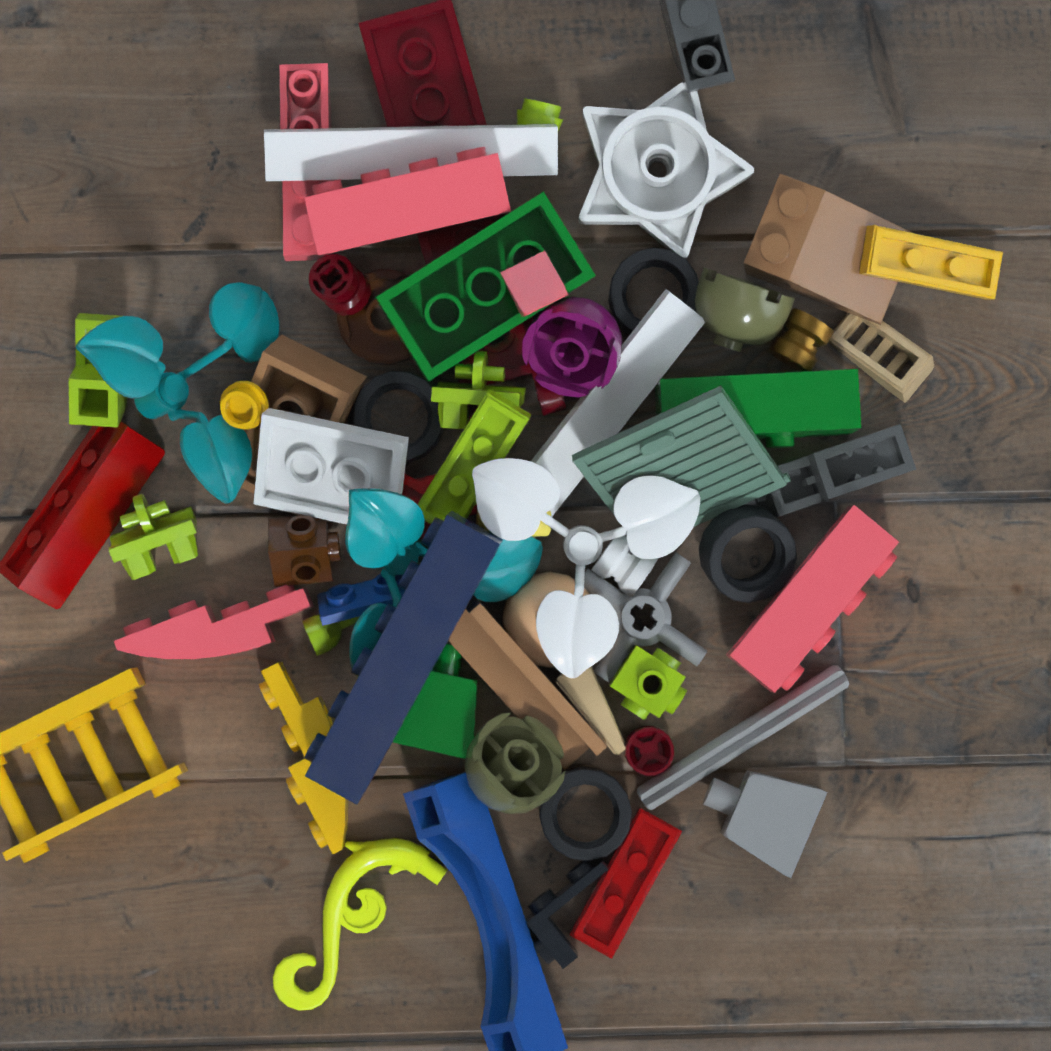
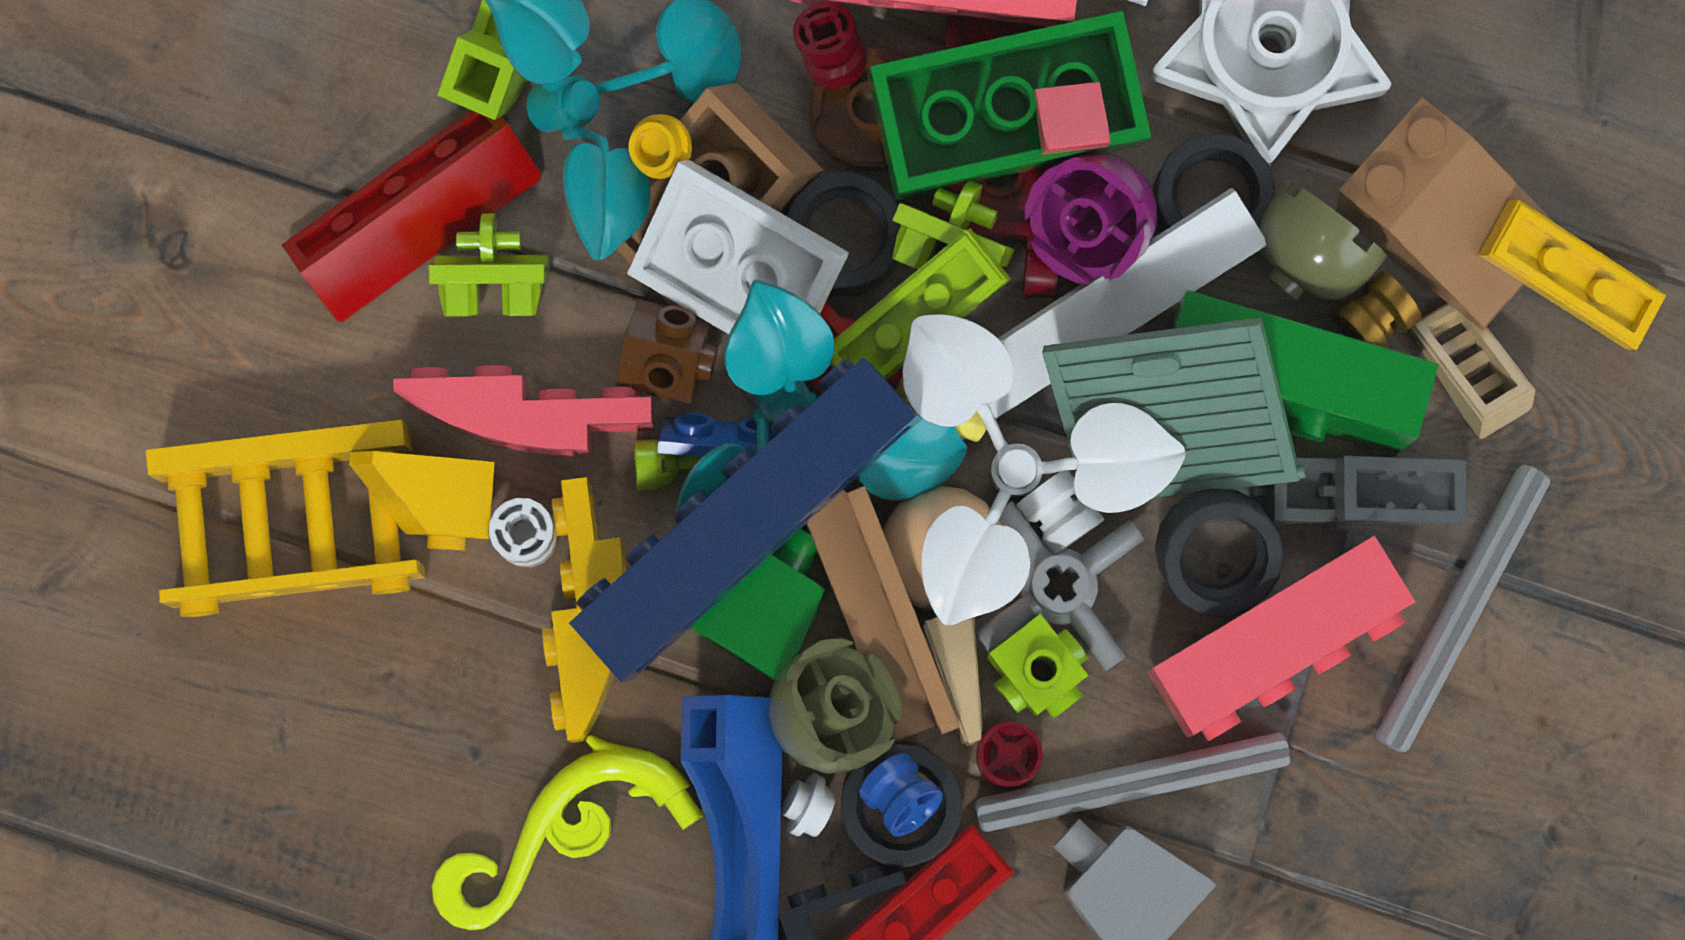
camera: 25 degrees right, 5 degrees down
(172, 714) = (431, 494): none -> yellow slope
(255, 716) = (532, 539): none -> white wheel
(520, 837) = (808, 806): none -> white plate
(582, 809) = (900, 794): none -> blue wheel
(934, 529) = (1462, 608): none -> light grey axle

